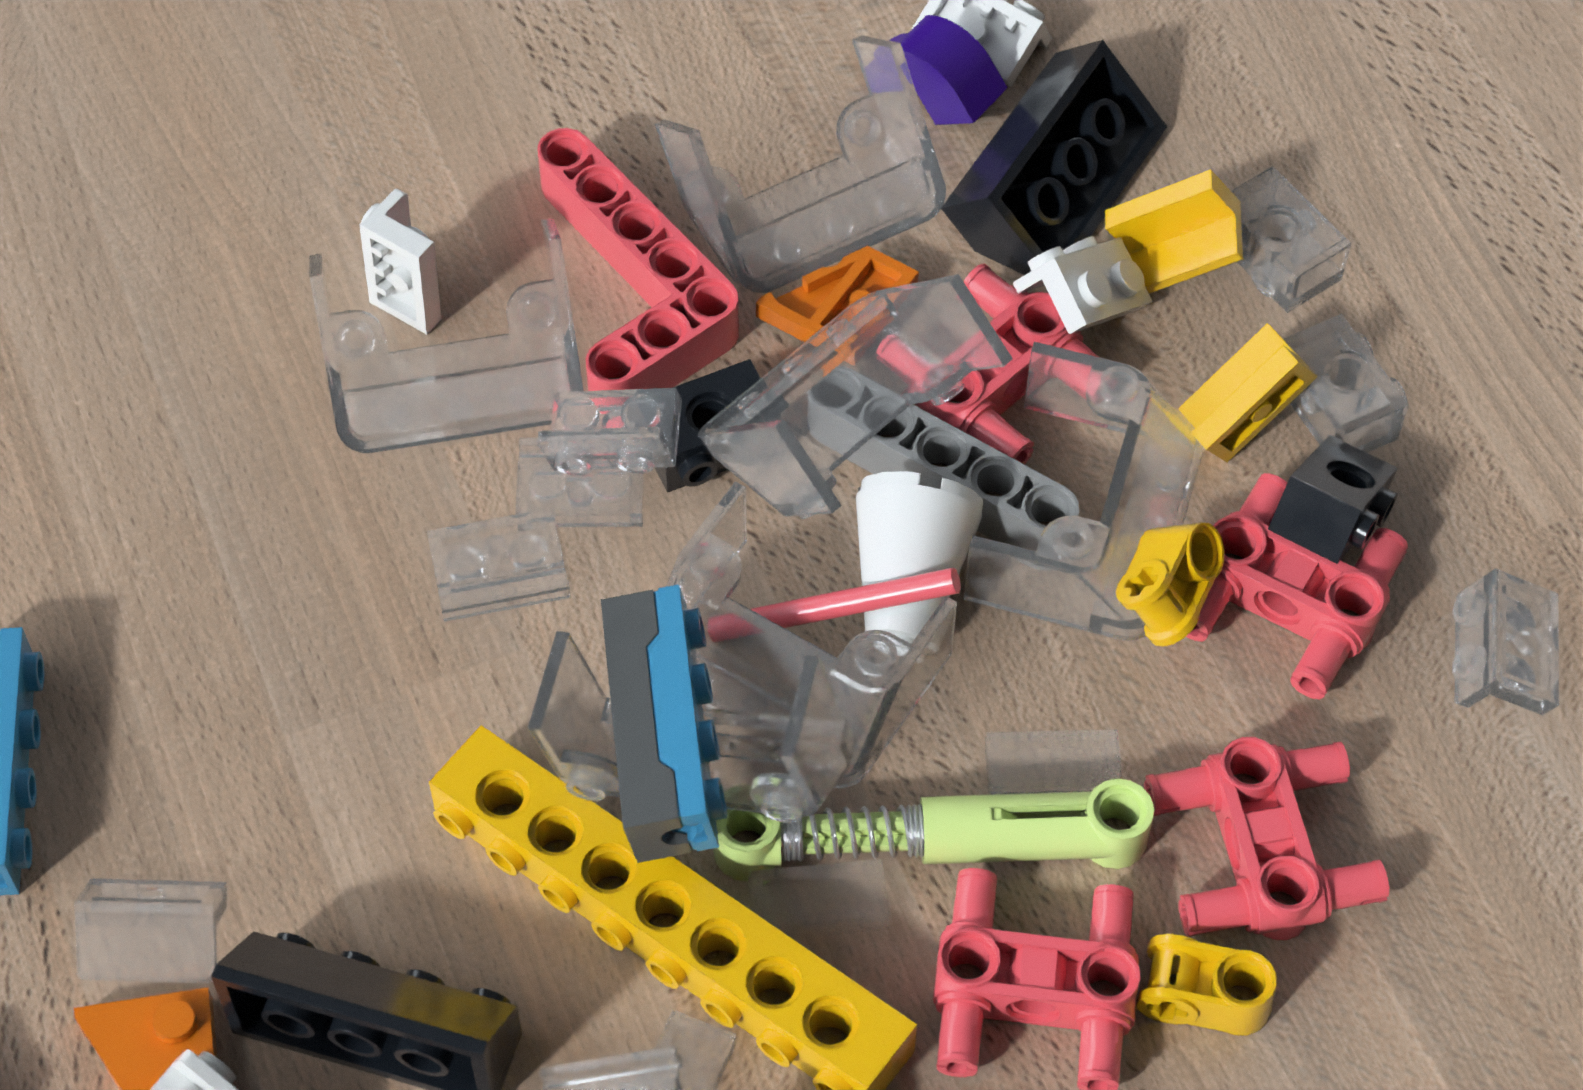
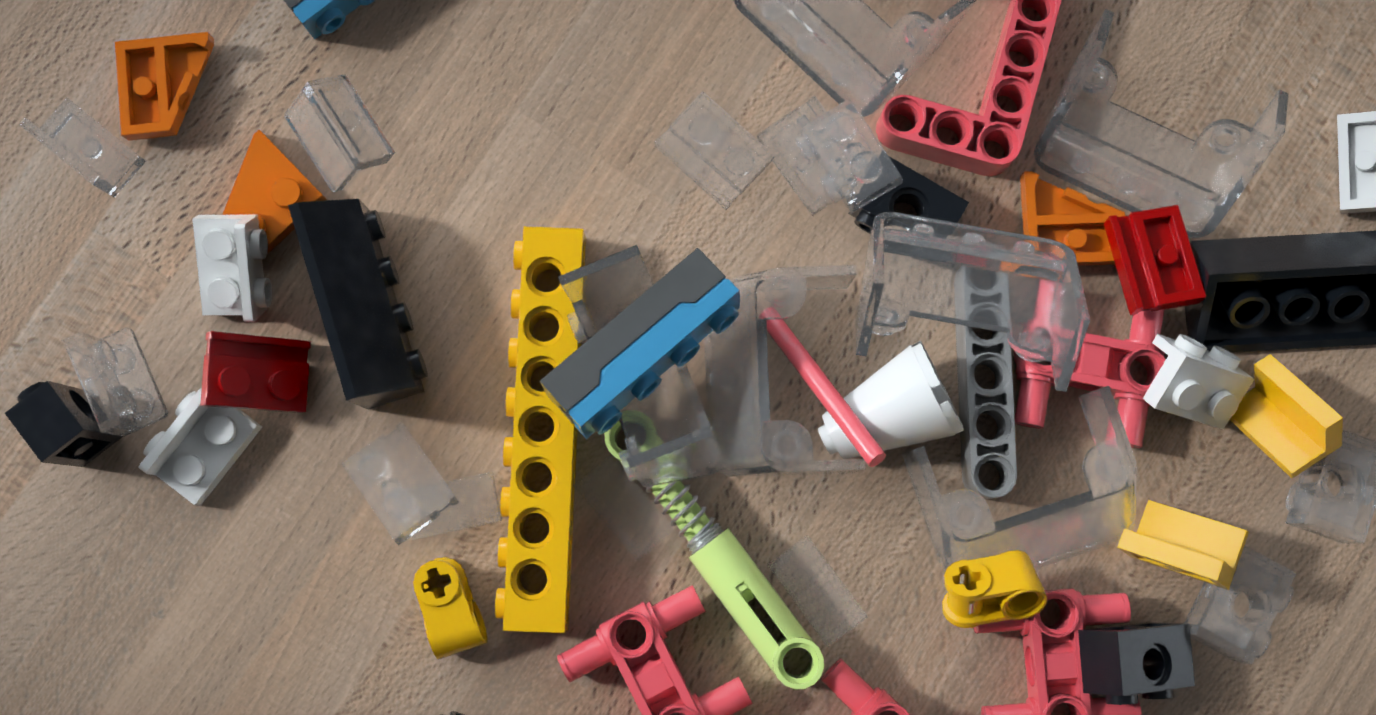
camera: 55 degrees right, 25 degrees up
(935, 240) = (1154, 260): none -> red plate
(950, 71) = (1311, 164): dark purple brick -> none

